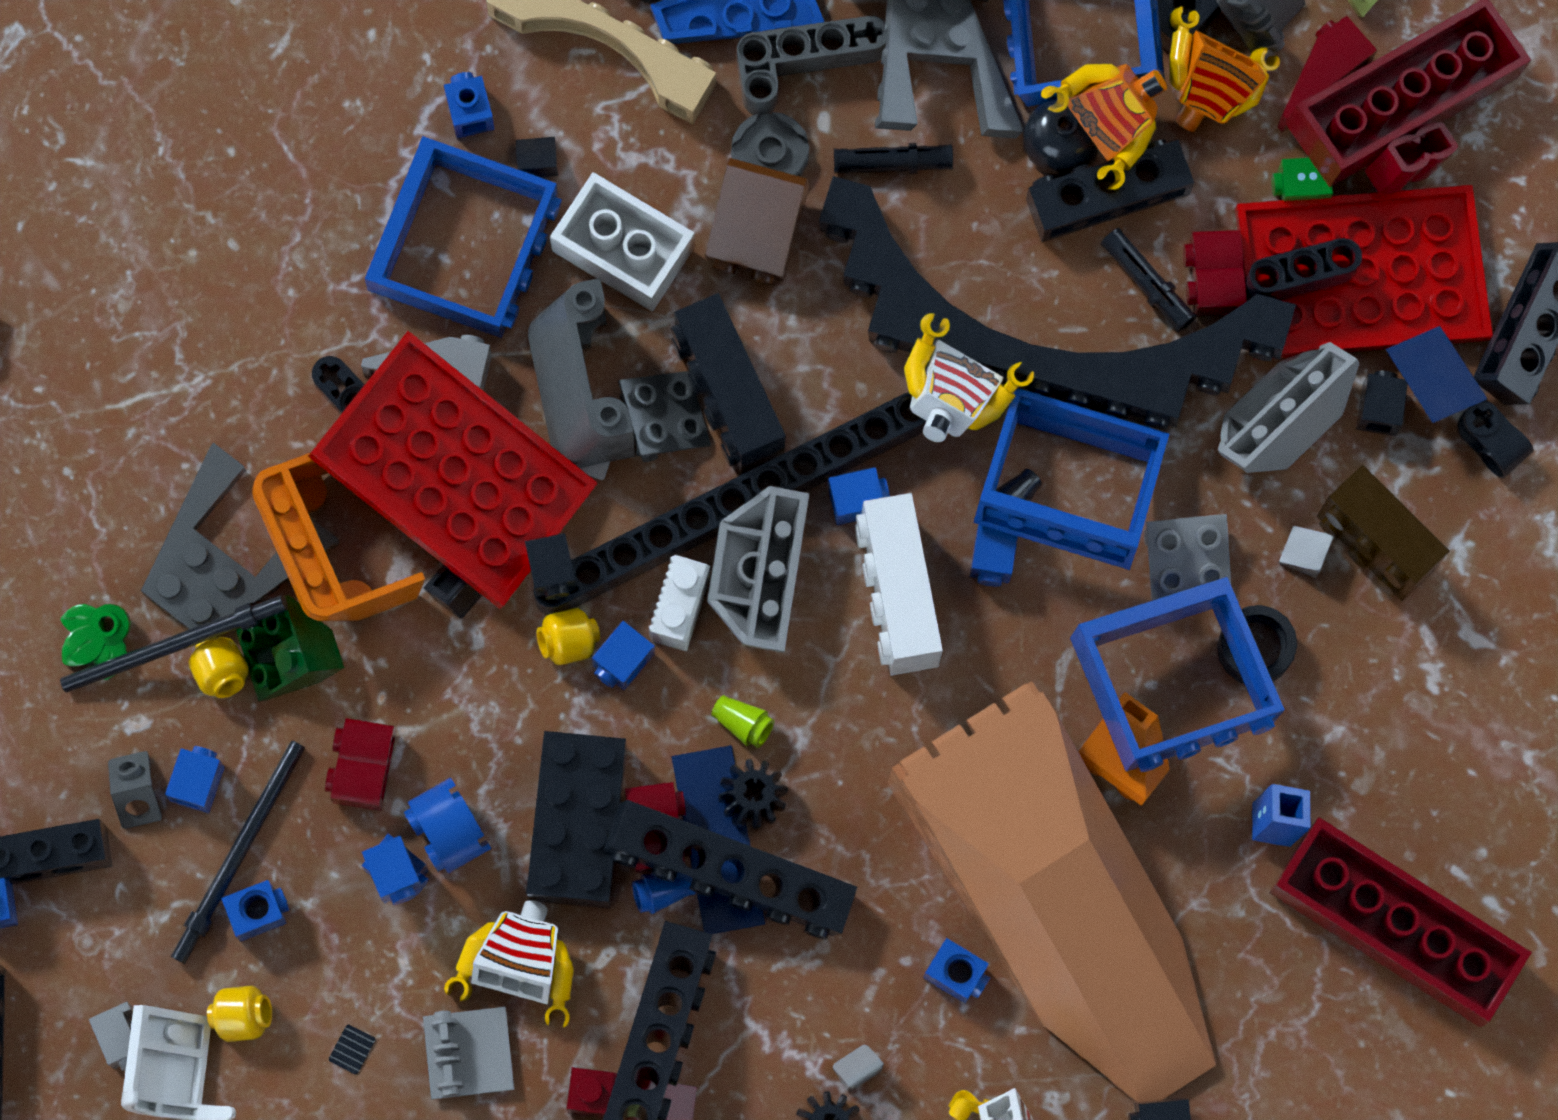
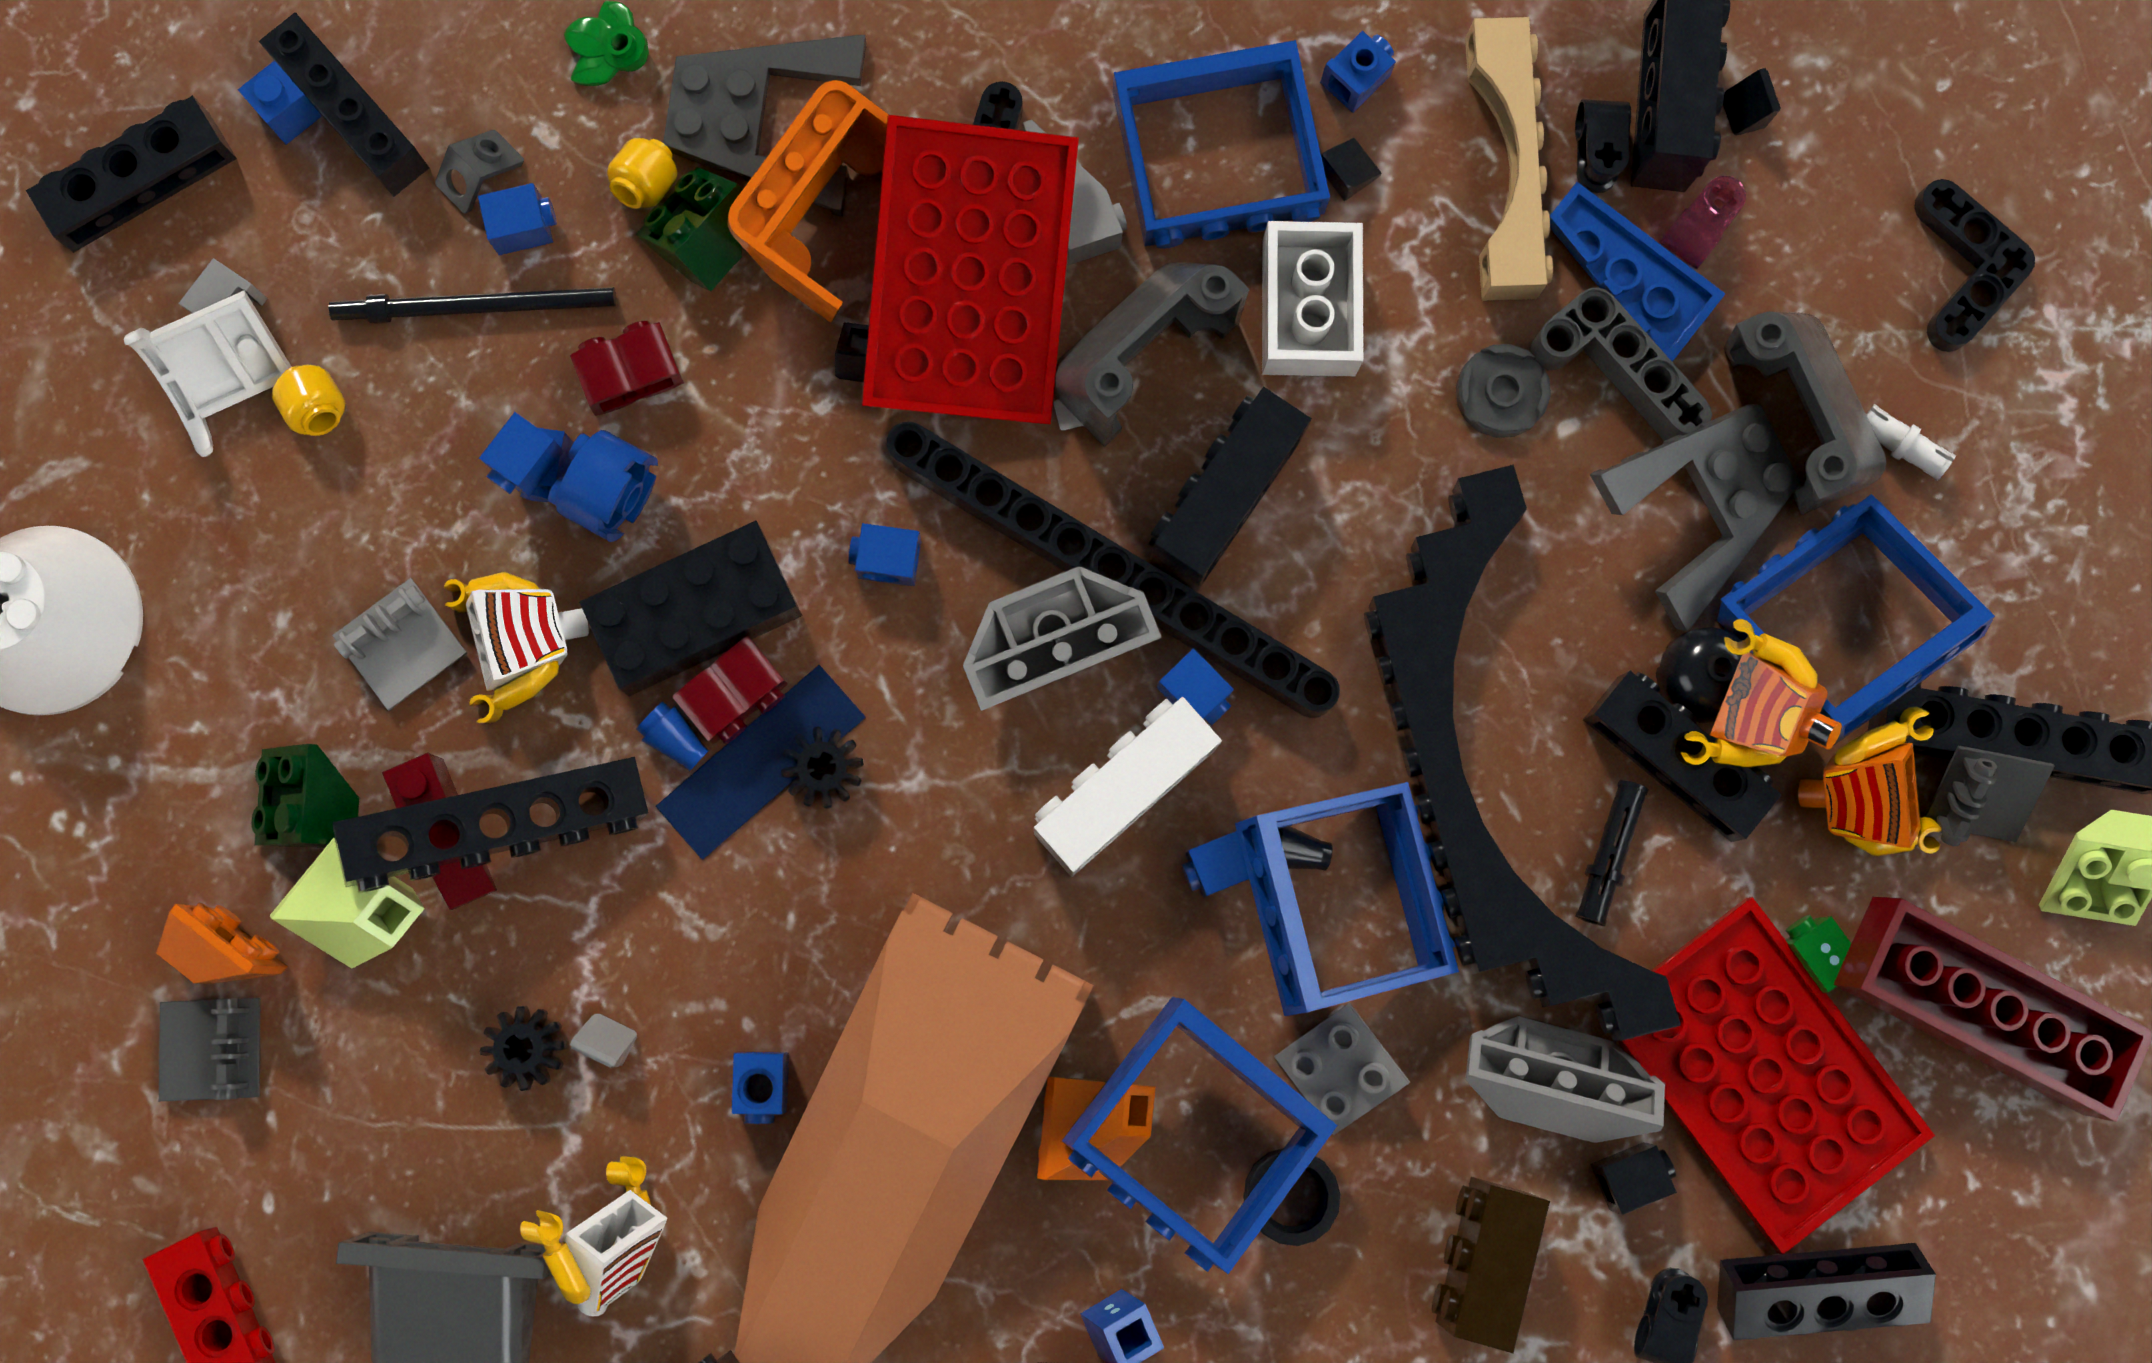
camera: 55 degrees right, 5 degrees up
(237, 910) = (407, 339): blue brick -> none
(245, 617) = (691, 158): black bar -> none
(352, 1049) = (343, 530): black sticker -> none
(551, 566) = (925, 425): black brick -> none
(567, 636) = (874, 489): yellow head -> none
(663, 414) = (1159, 446): dark grey hinge -> none
(679, 602) = (974, 577): white brick -> none
(743, 720) = (894, 714): lime cone -> none
(756, 221) = (1417, 416): slope -> none
(830, 895) = (734, 915): black brick -> none
(901, 158) = (1578, 525): black pin -> none
(952, 388) = (1364, 719): torso -> none
(1216, 272) = (1665, 918): dark red brick -> none
(1306, 550) = (1426, 1188): light grey slope -> none
(1316, 257) = (1746, 1016): black beam -> none
(1335, 55) = (1982, 906): dark red slope -> none
(1411, 158) = (1922, 1054): dark red brick -> none
(1436, 374) = (1702, 1219): dark blue sticker -> none

